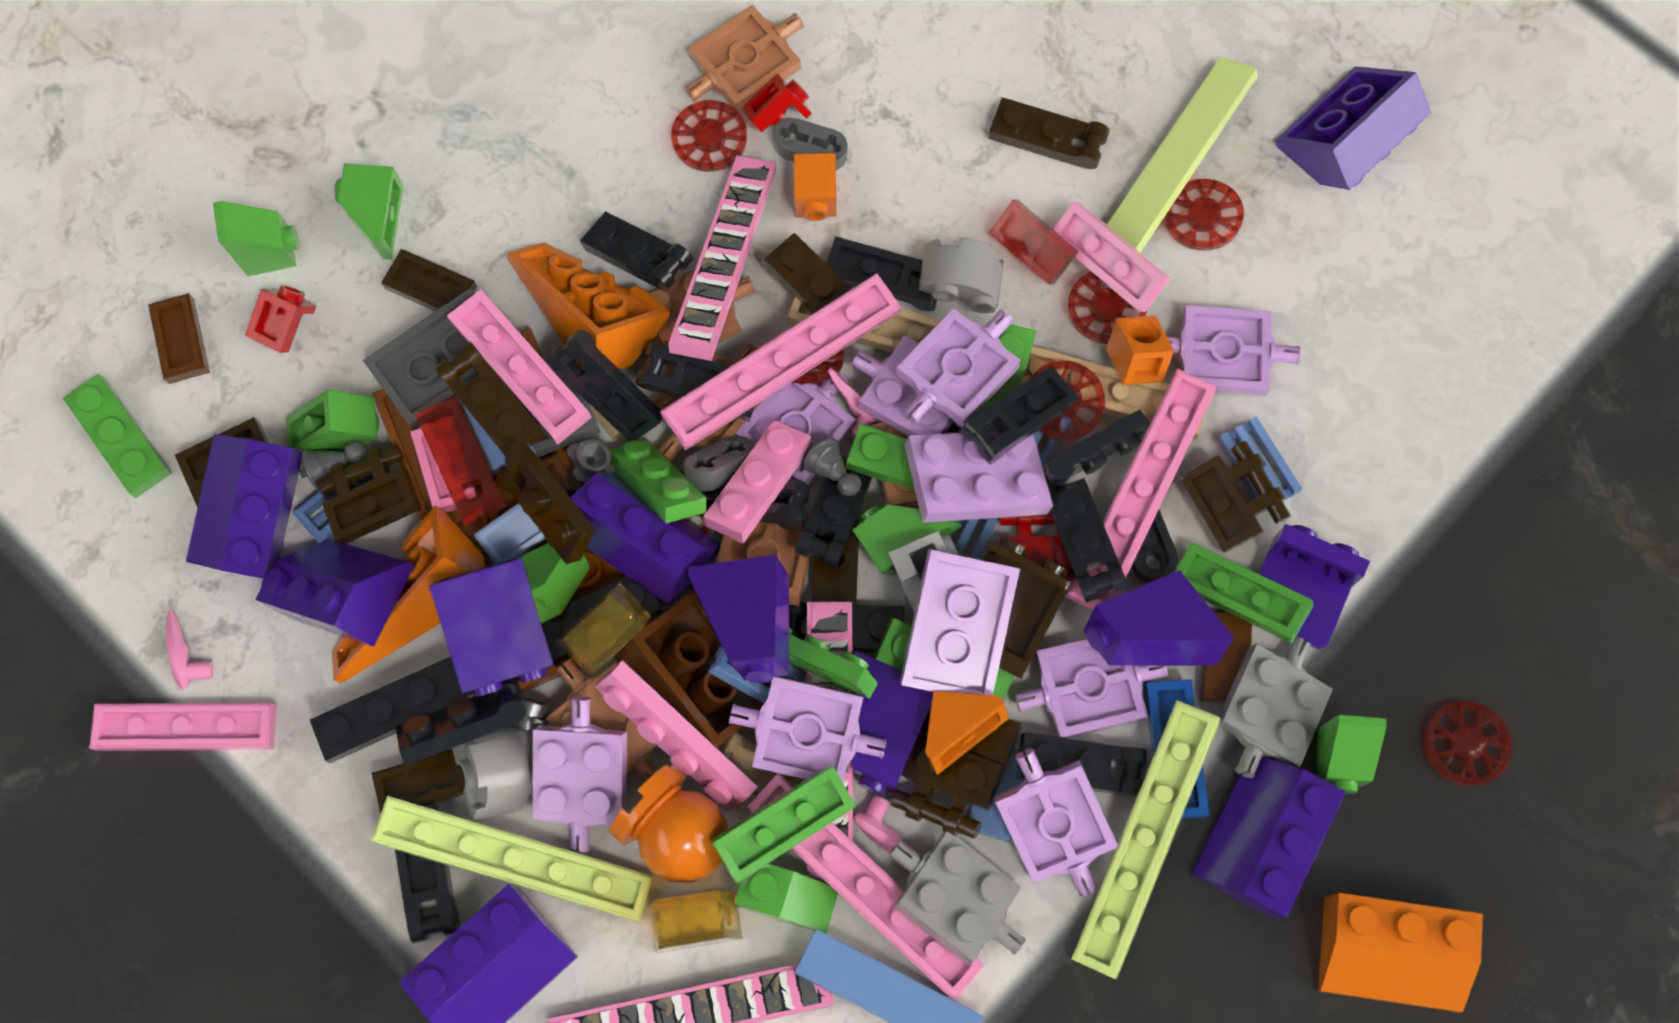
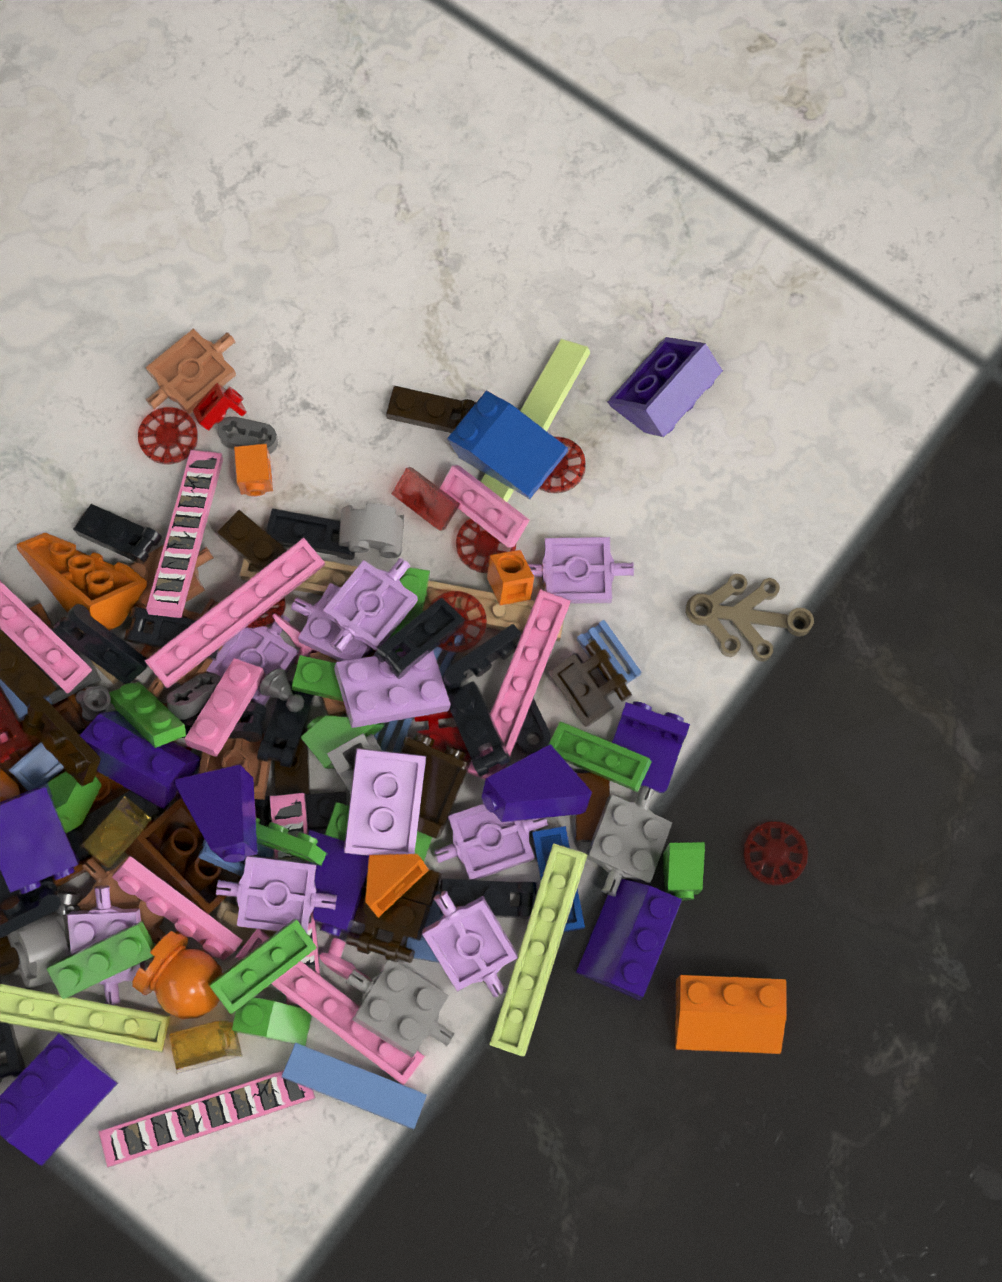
camera: 10 degrees left, 0 degrees up
(572, 793) = (101, 960): none -> bright green plate
(1145, 181) = (506, 445): none -> blue slope
(1440, 430) = (743, 616): none -> dark tan plant

